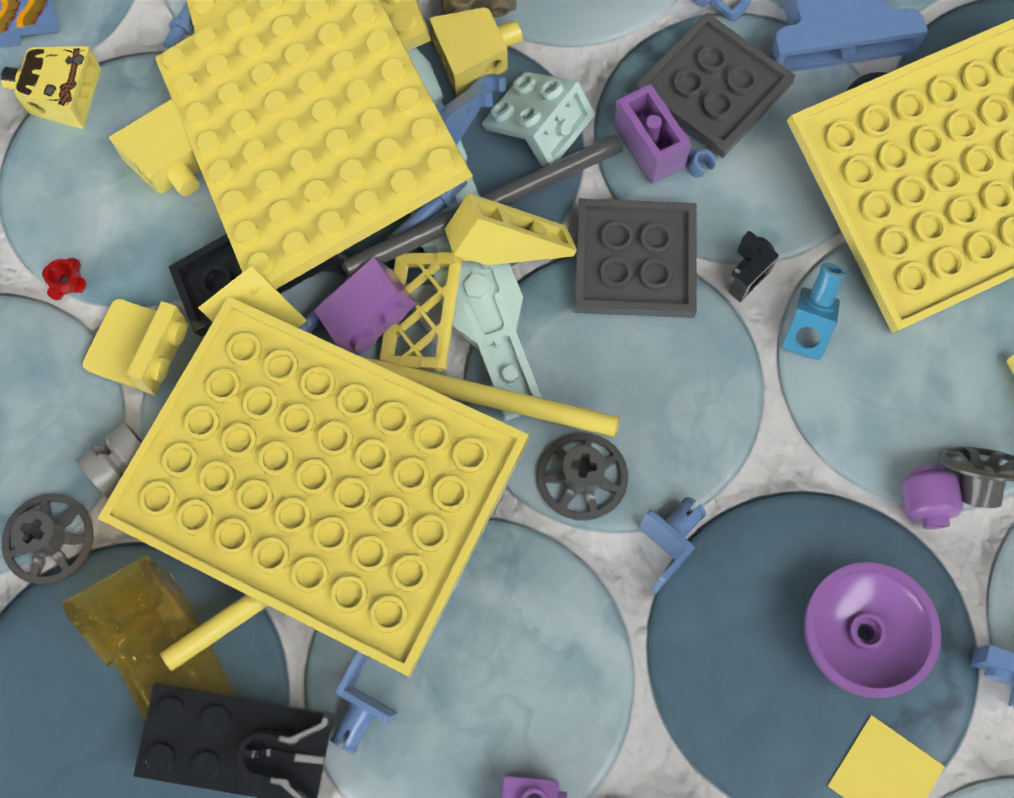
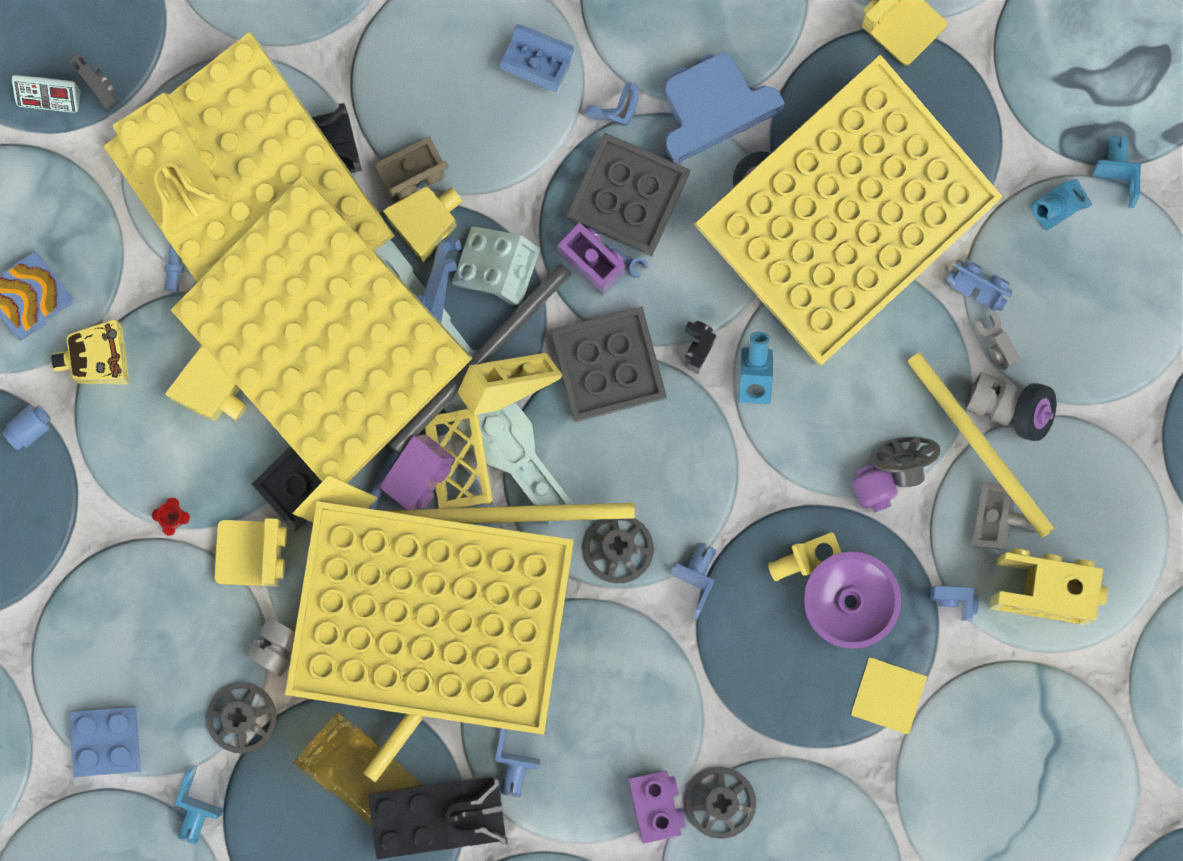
camera: 20 degrees left, 10 degrees up
(815, 557) = (803, 558): none -> light yellow bracket

